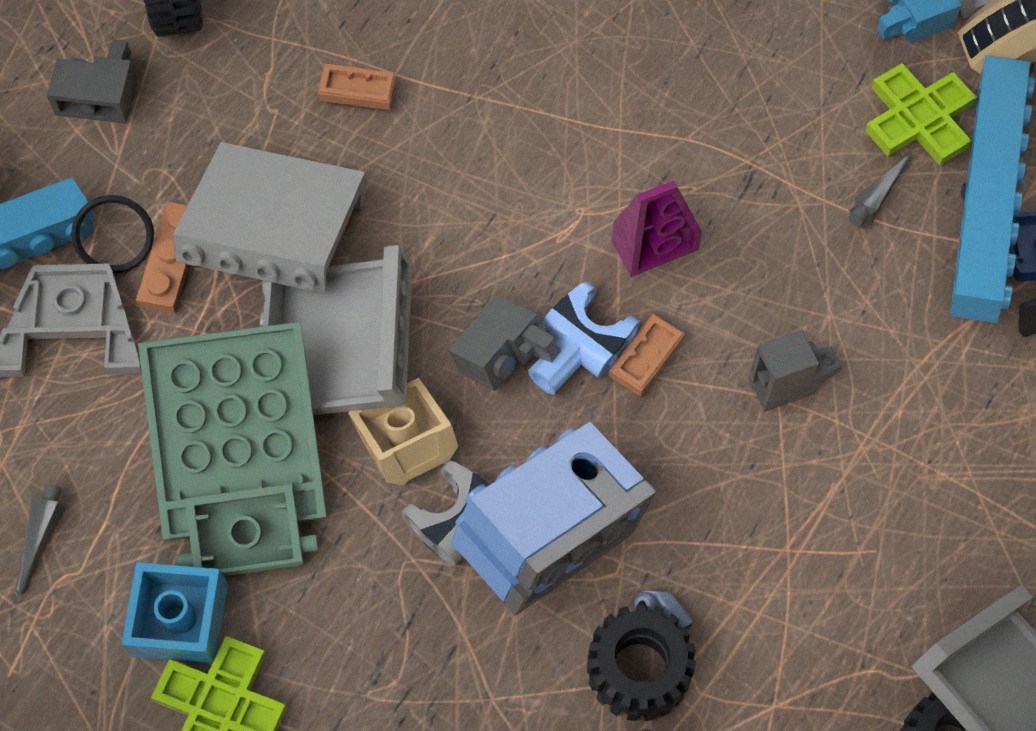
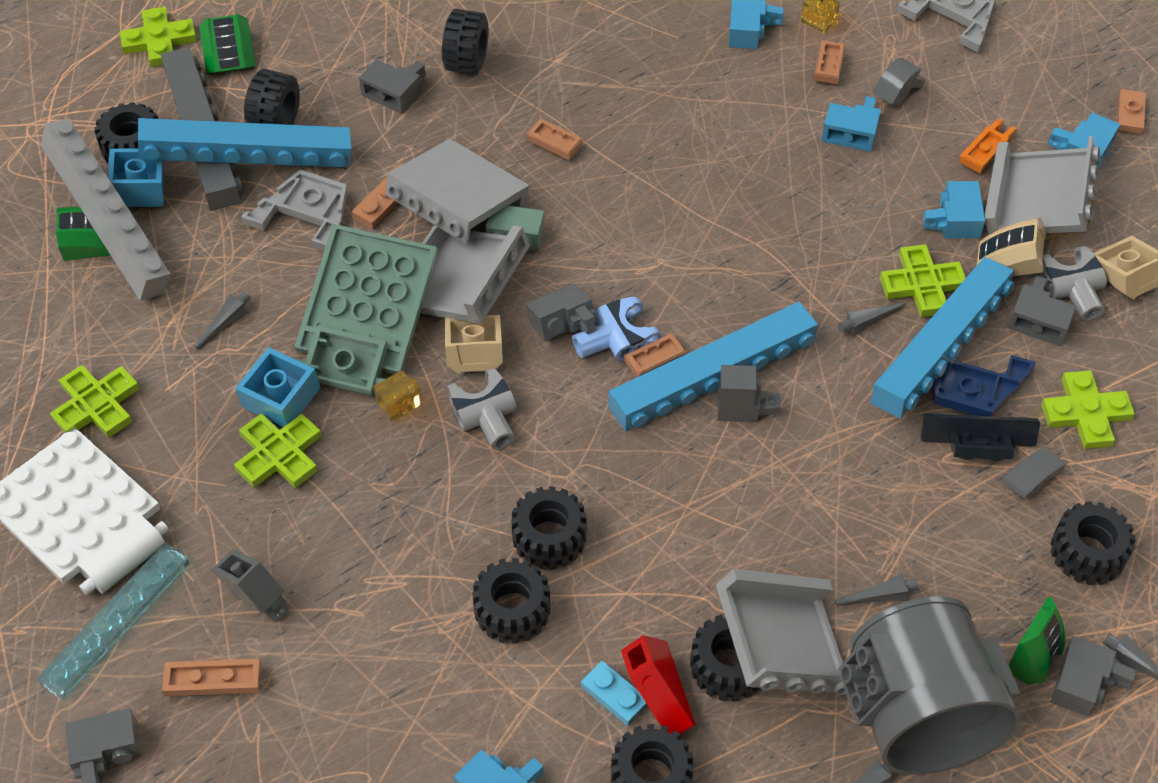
camera: 25 degrees right, 10 degrees down
(124, 201) = (374, 152): black tyre -> none
(343, 553) = (397, 395): none -> clear yellow brick
(372, 231) = (529, 219): none -> sand green piece
(551, 516) = (534, 416): medium blue piece -> none
(655, 229) = (697, 277): magenta wedge -> none
(665, 601) = (589, 507): sand blue arm -> none
(725, 342) = (700, 370): none -> dark azure brick

